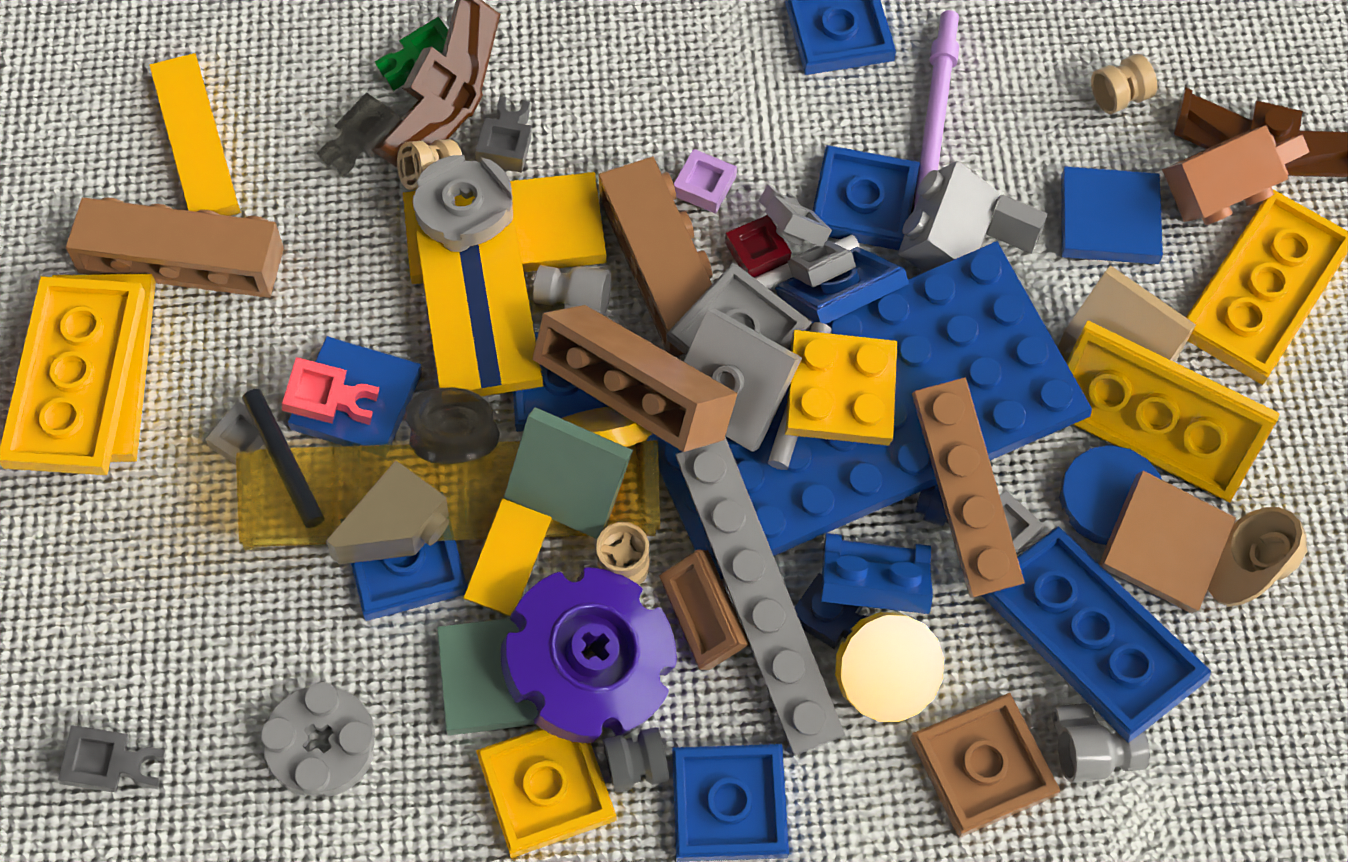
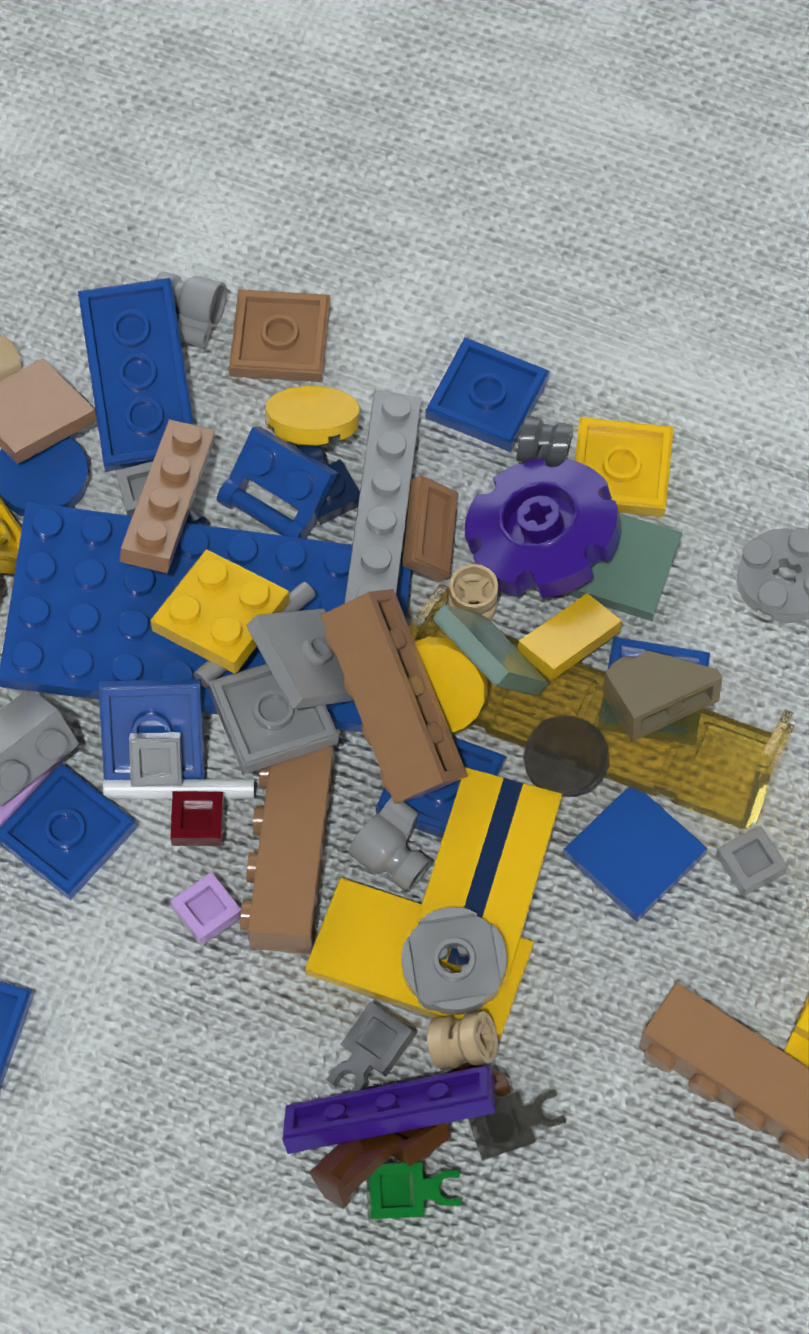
camera: 150 degrees left, 0 degrees up
(194, 136) = (681, 1211): yellow tile -> none
(283, 458) = (727, 798): black bar -> none
(320, 390) = (667, 845): coral plate -> none
(460, 85) = (389, 1109): none -> dark purple tile
(793, 220) = (154, 814): light grey plate -> none

